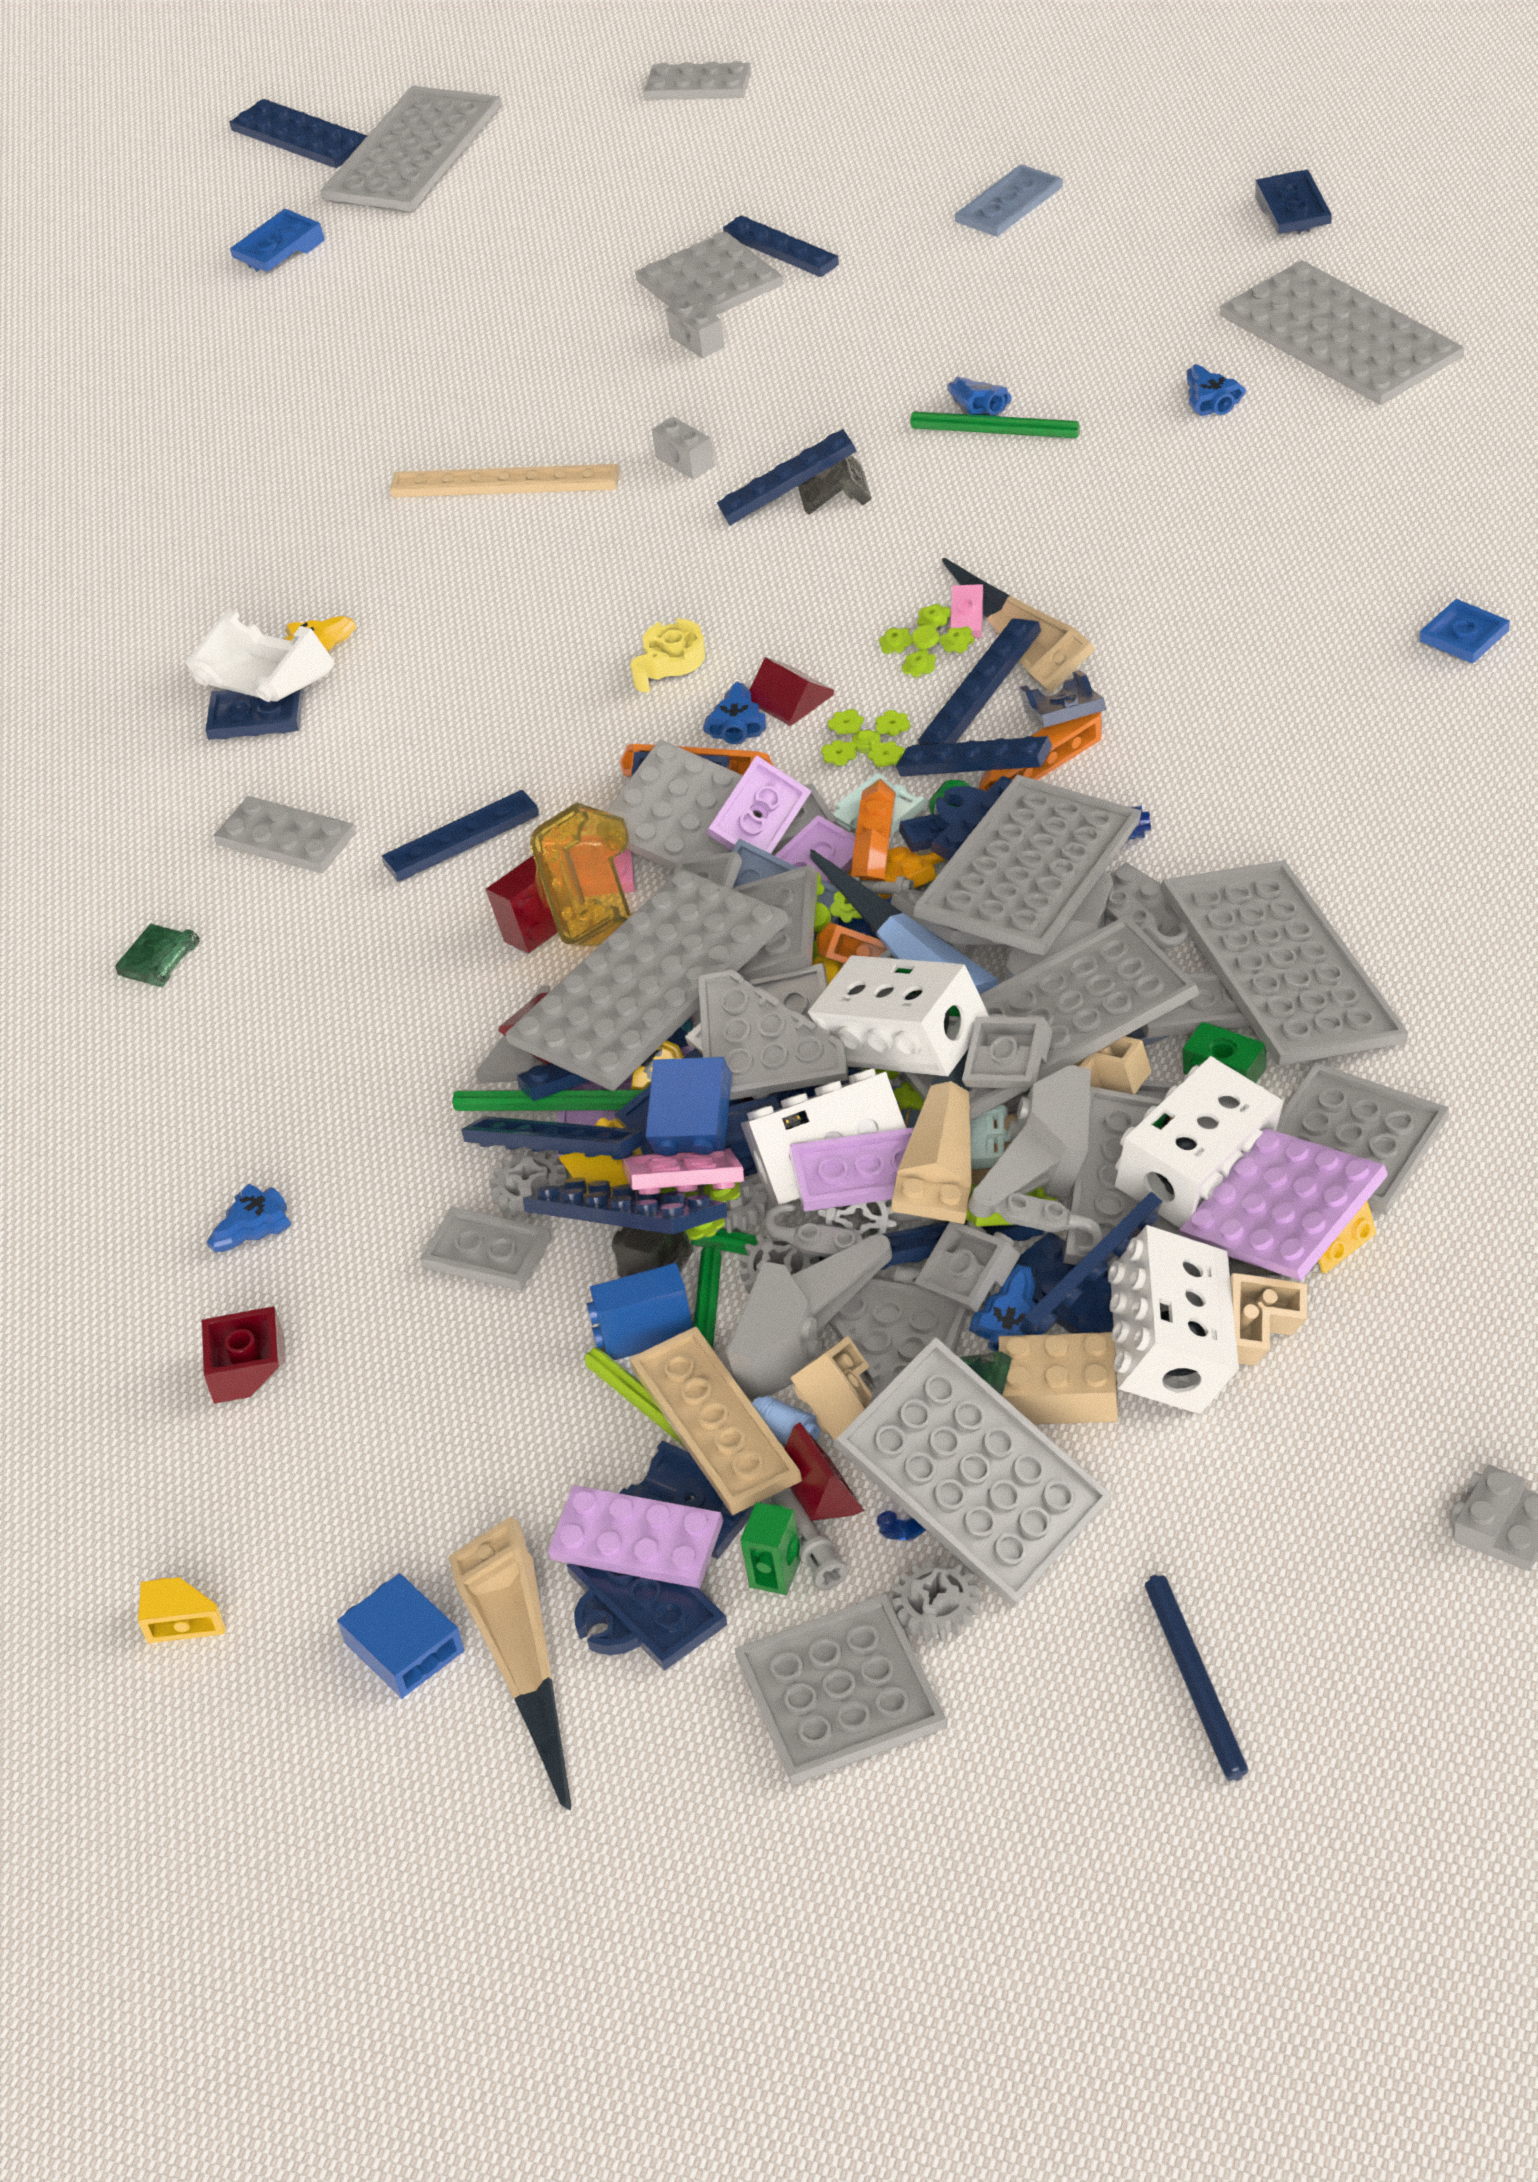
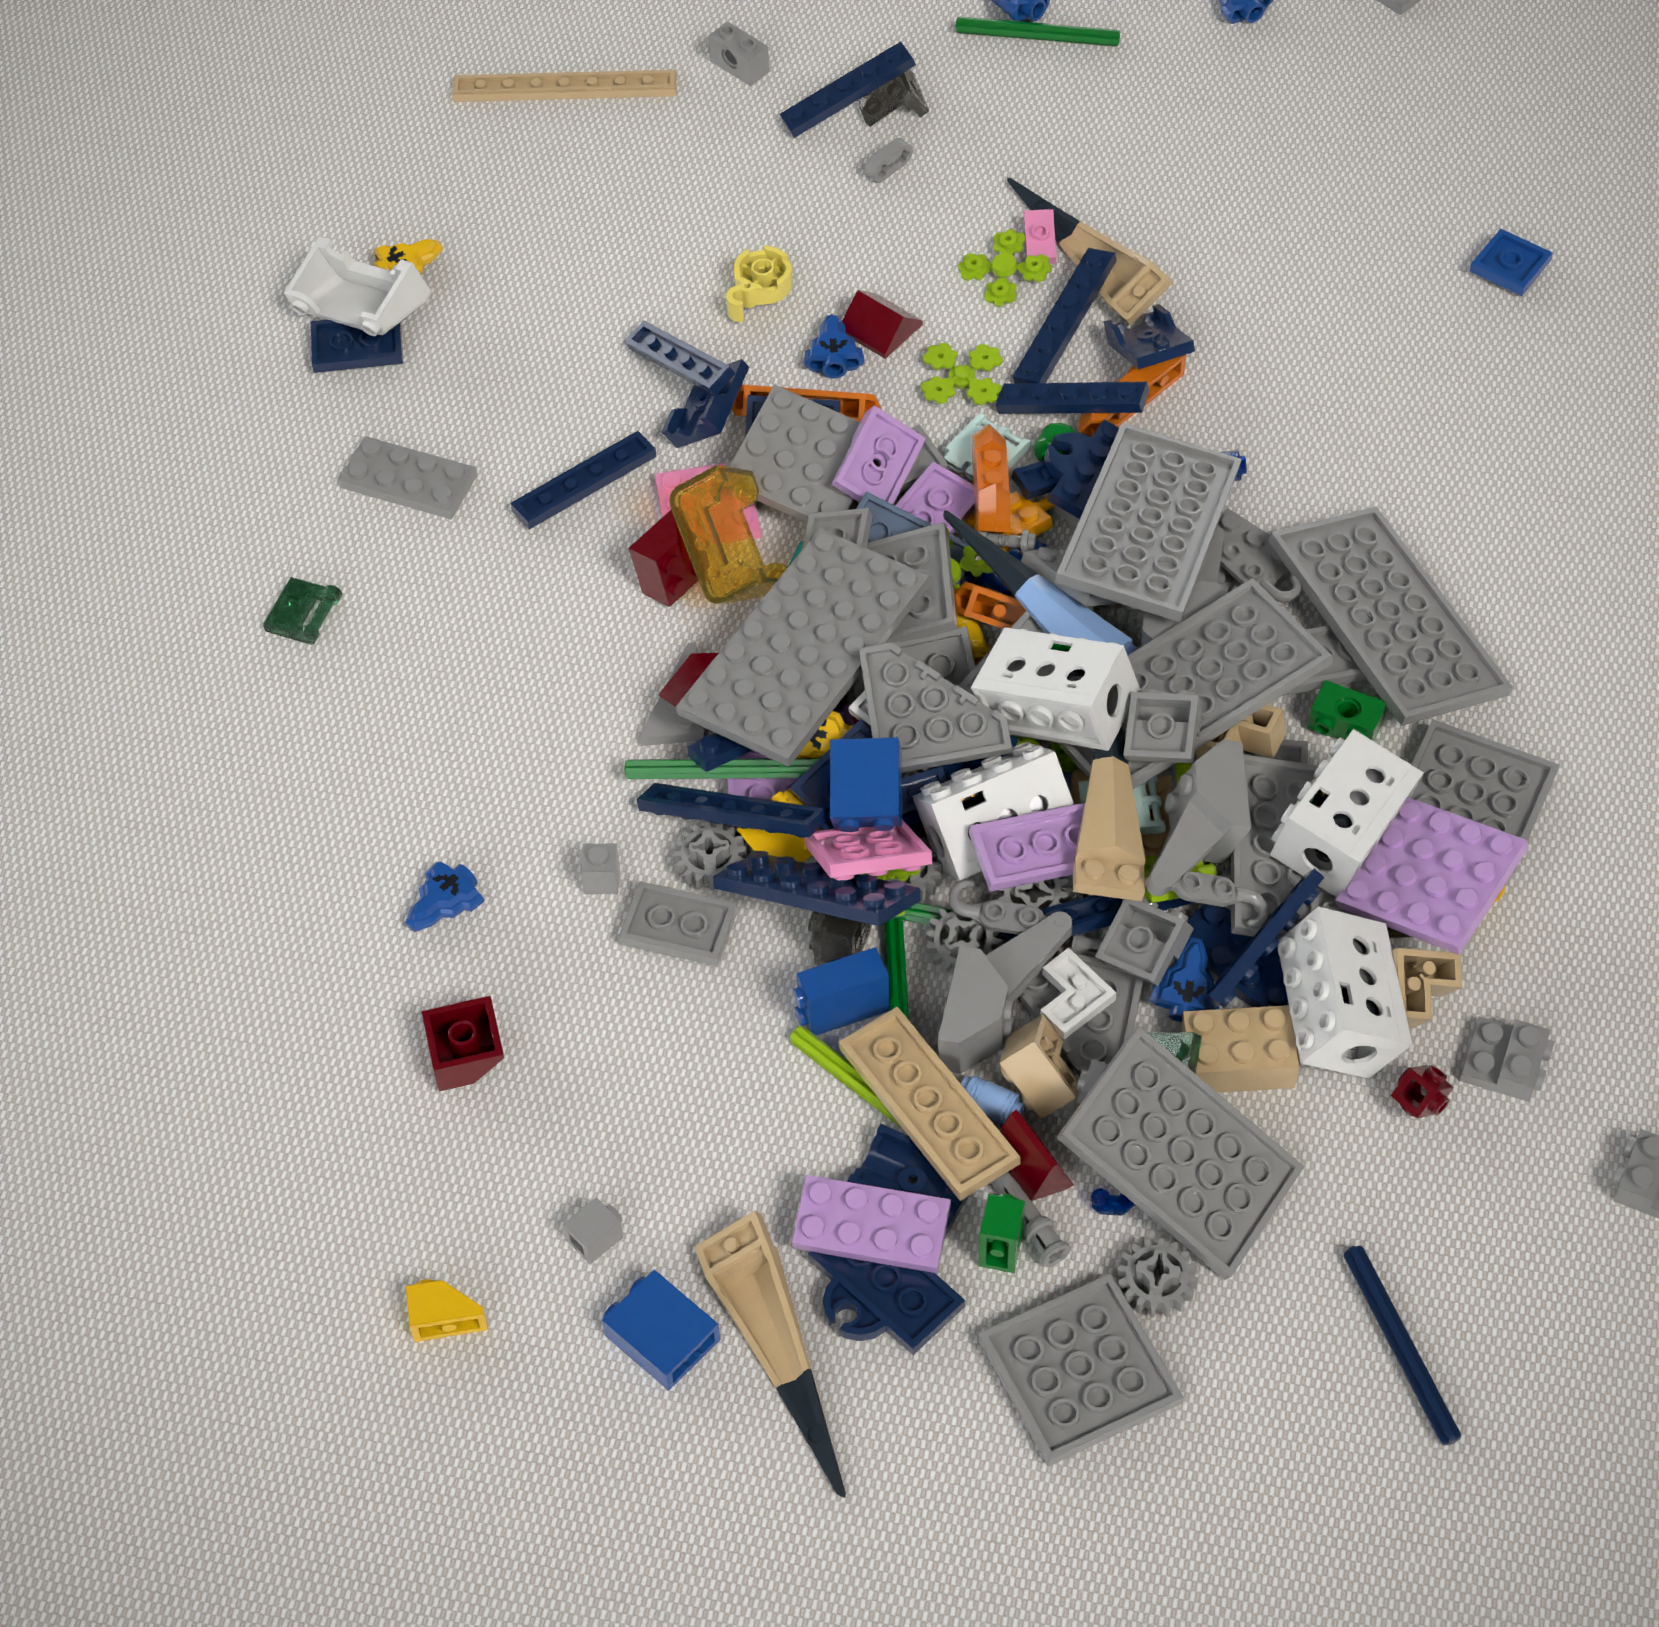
camera: 10 degrees left, 10 degrees up
(347, 1537) = (594, 1230): none -> light grey brick
(413, 1194) = (600, 868): none -> light grey brick
(573, 720) = (679, 357): none -> plate
(595, 765) = (704, 412): none -> dark blue piece
(821, 542) = (888, 160): none -> light grey beam
(893, 1320) = (1082, 993): none -> white plate
(1251, 1422) = (1412, 1091): none -> dark red brick
(1353, 1394) = (1507, 1057): none -> light grey plate

